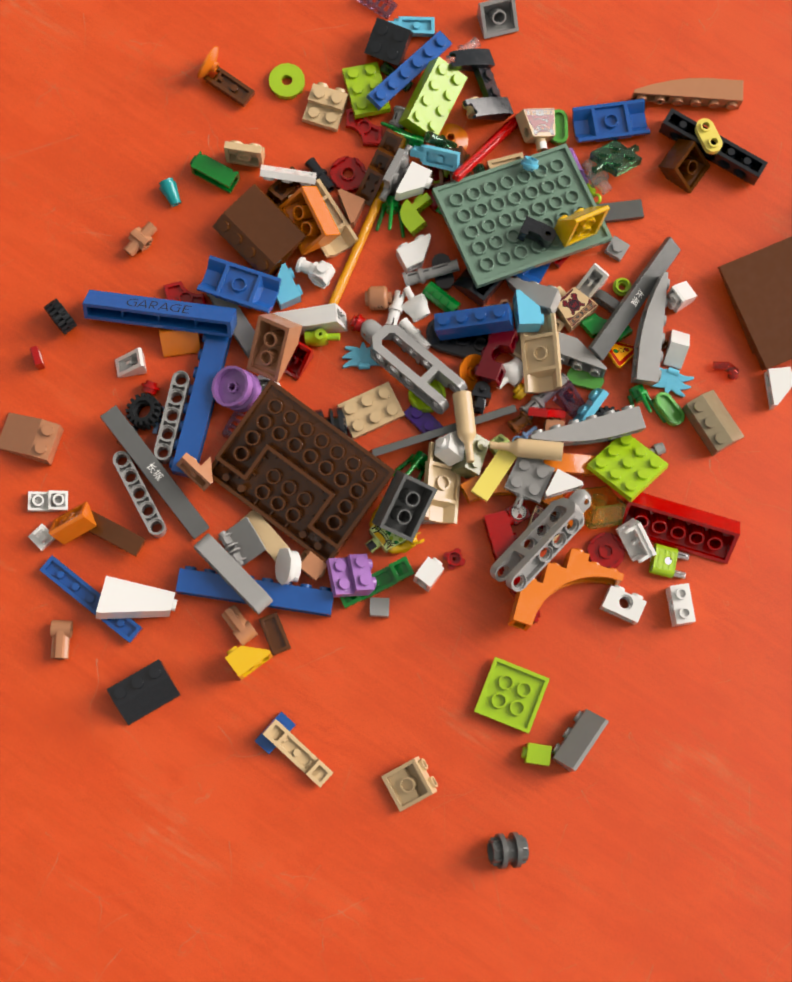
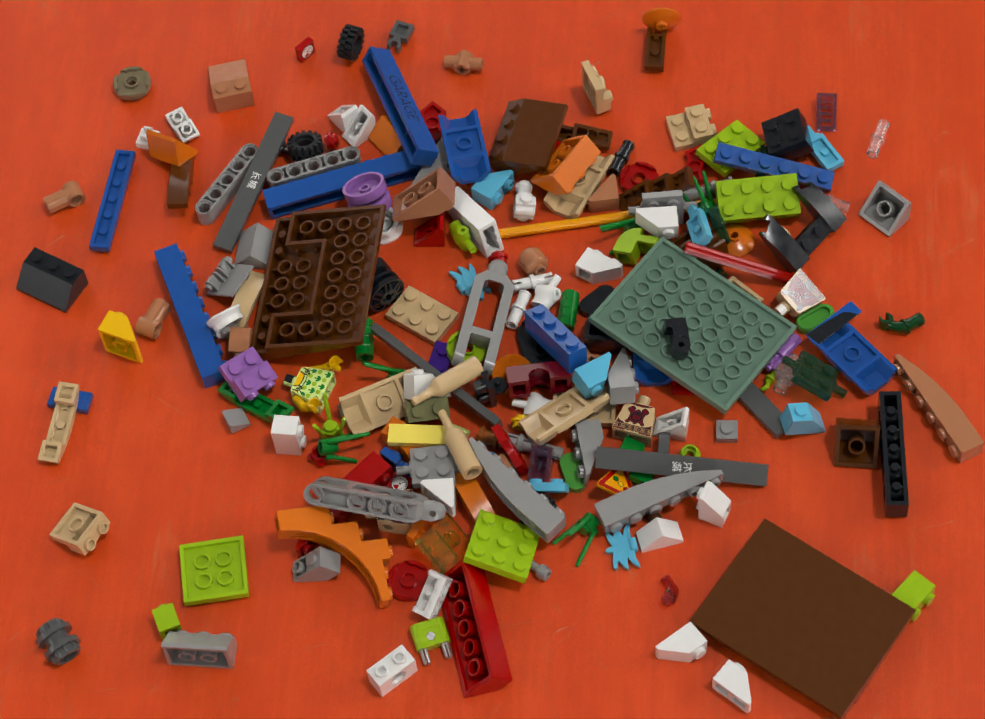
camera: 75 degrees right, 20 degrees down
(73, 271) = (400, 34): none -> dark grey plate
(133, 600) = (126, 225): white slope -> none
(153, 357) = (359, 127): none -> white slope
(170, 191) = (523, 59): teal cone -> none
(198, 473) = (271, 208): nougat slope -> none
(214, 172) = (564, 80): green window -> none
(219, 506) = (254, 246): none -> light grey slope
(233, 573) = (192, 281): light grey beam -> none
(274, 633) = (162, 352): reddish brown tile -> none
(286, 71) = (690, 79): lime tile -> none
(287, 175) = (597, 128): white plate -> none
(404, 506) = (334, 369): dark grey brick -> none
(422, 275) = (580, 283): light grey pin -> none
(436, 537) = (330, 427): none -> lime plant
(458, 548) = (329, 446): none -> green plant
(495, 505) = (393, 458): none -> blue plate
(530, 163) = (747, 300): medium azure plate -> none
(556, 614) = (316, 566): none -> light grey slope
(578, 116) = (833, 323): none -> black sticker
(581, 224) = (709, 367): yellow slope -> none
(605, 71) = (902, 326): none -> dark green piece
(611, 604) = (362, 632): white brick -> none
(645, 192) = (801, 419): none -> medium azure slope
(668, 409) = (591, 560): bright green tile -> none
(707, 135) = (894, 434): light yellow plate -> none
(712, 422) = (604, 605): dark tan slope -> none

